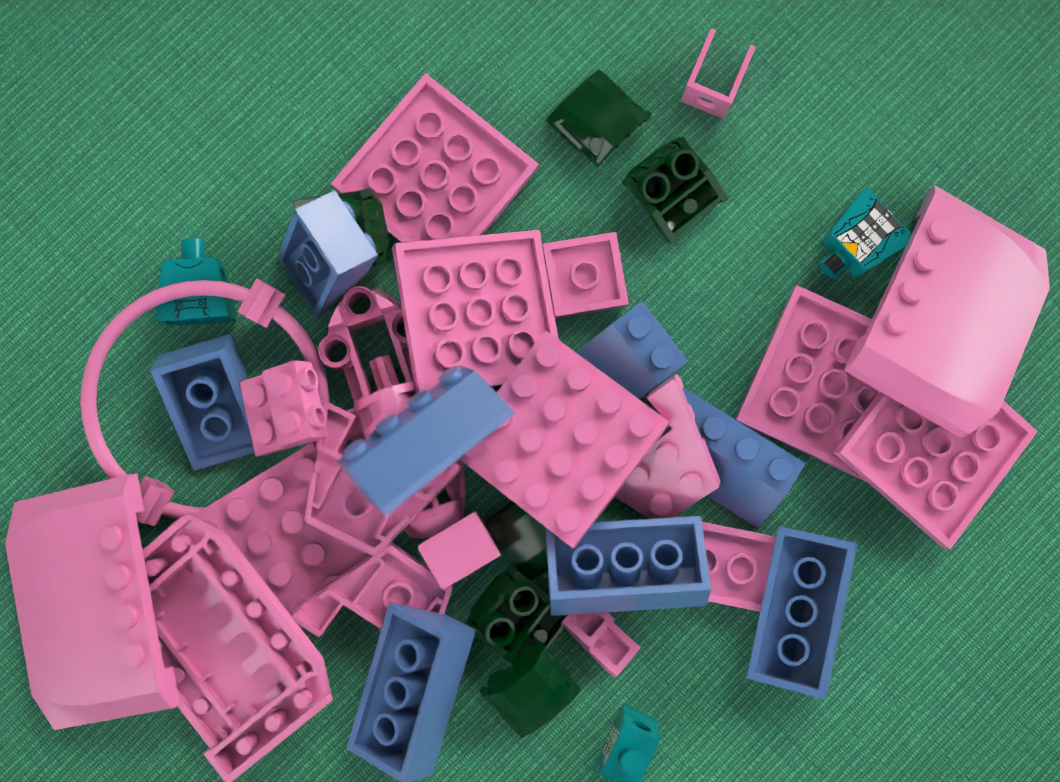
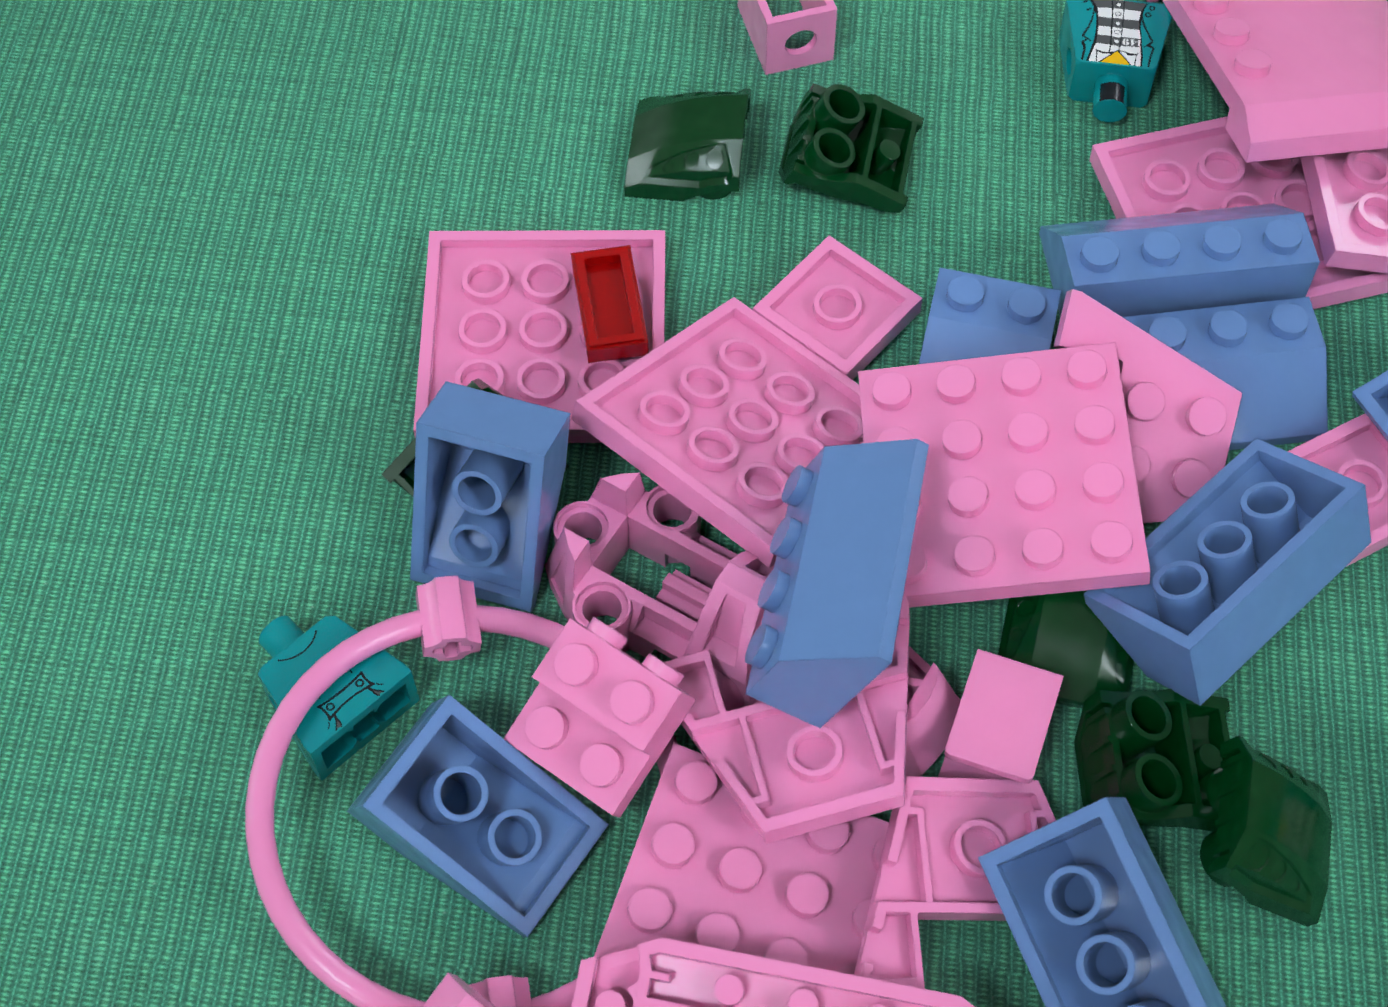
camera: 35 degrees left, 25 degrees down
(473, 187) = (609, 304): none -> red tile
(602, 640) = (1287, 704): bright pink slope -> none
(766, 387) = (1183, 259): none -> medium blue slope

